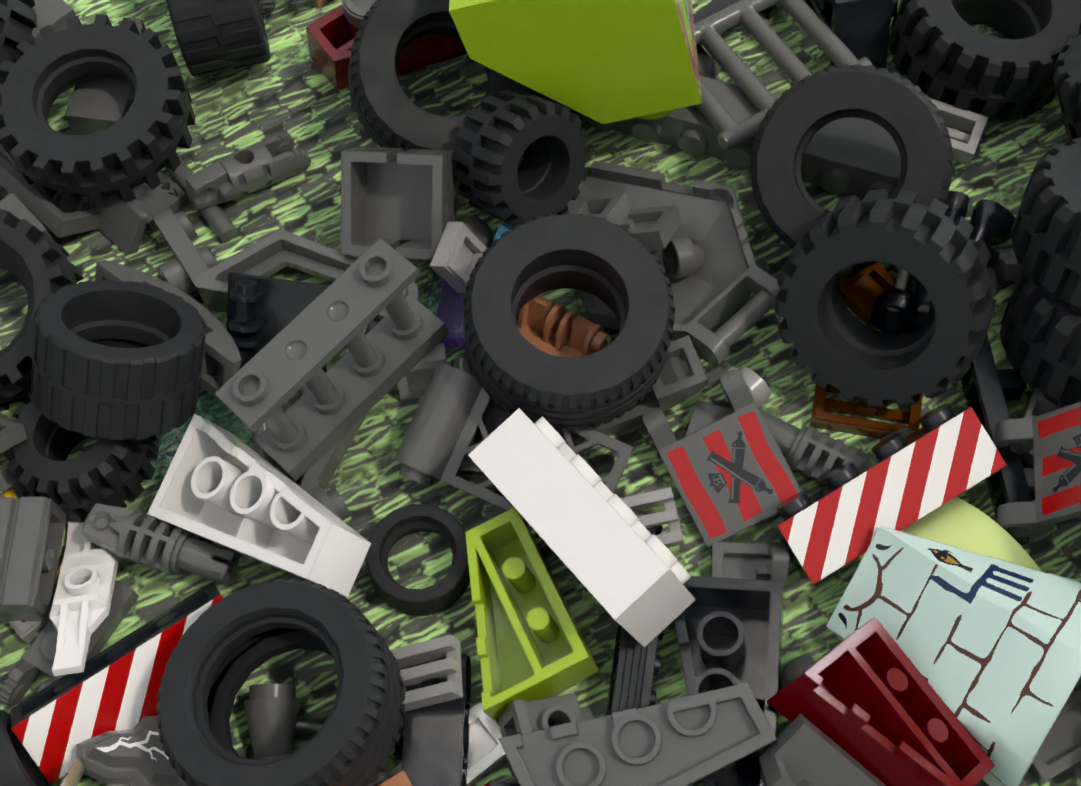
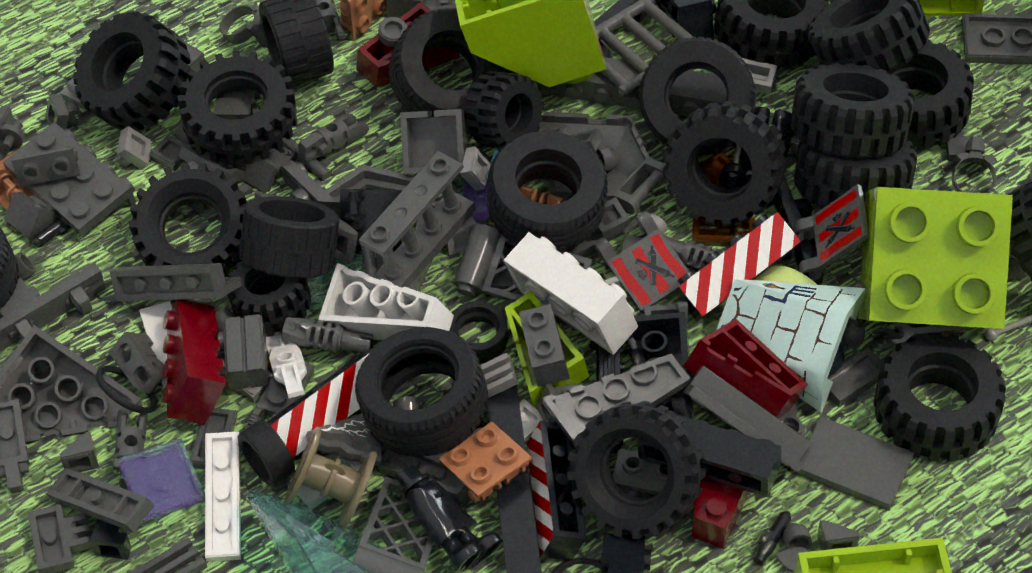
camera: 10 degrees left, 10 degrees down
(517, 631) = (544, 345): none -> dark grey brick

